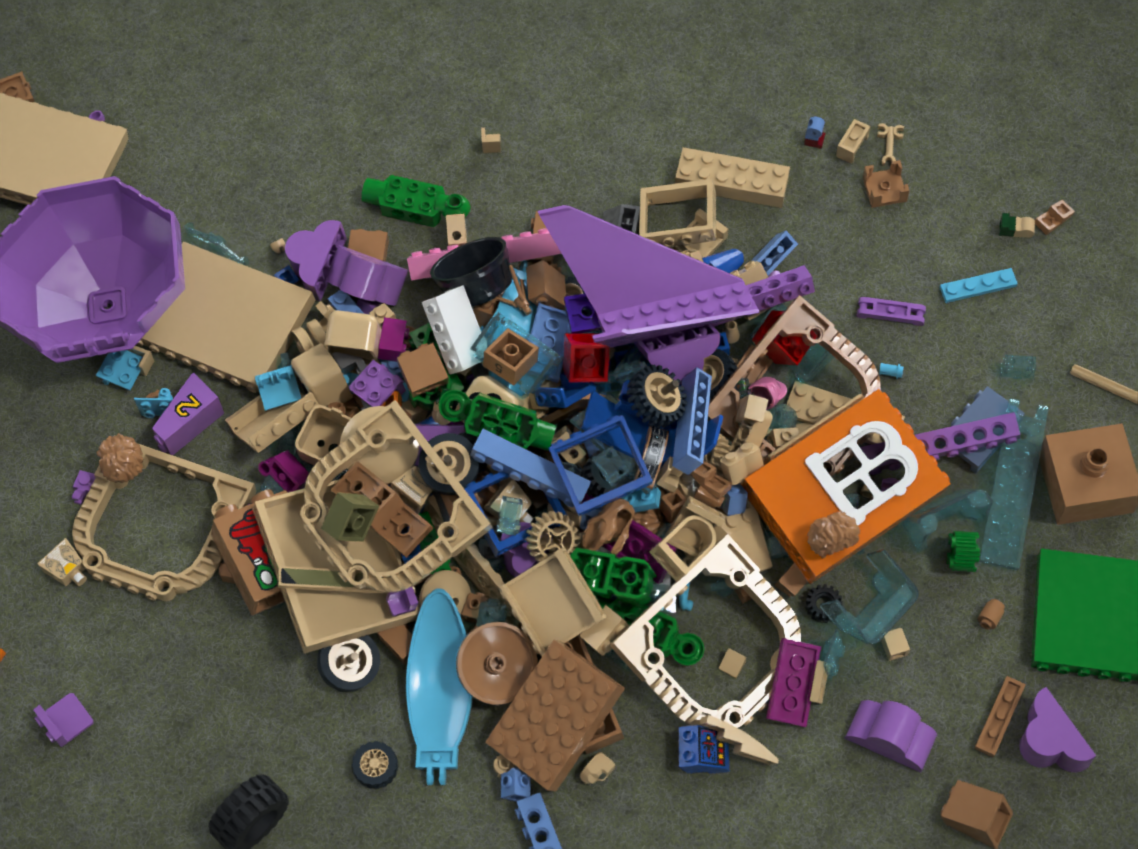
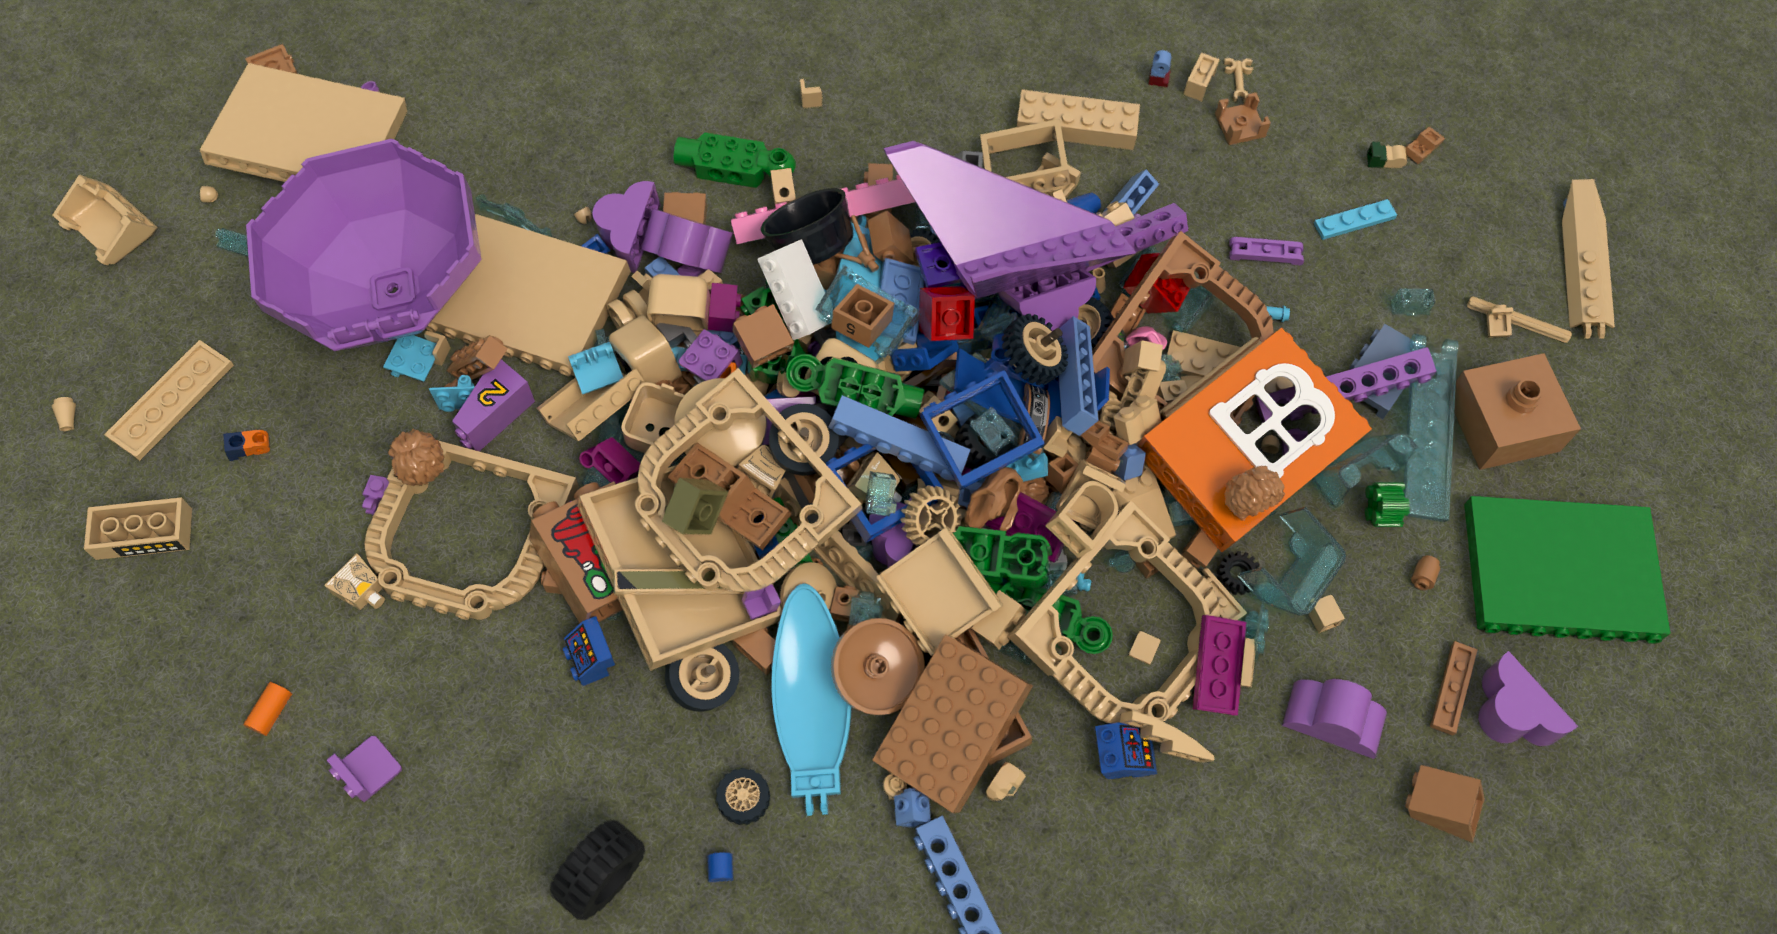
camera: 10 degrees left, 0 degrees up
(176, 374) = (477, 357): none -> medium nougat brick
(254, 634) = (588, 652): none -> blue piece
(351, 822) = (720, 867): none -> blue brick
(809, 631) = (1228, 605): none -> tan hinge
(1095, 390) = (1499, 321): none -> tan bracket

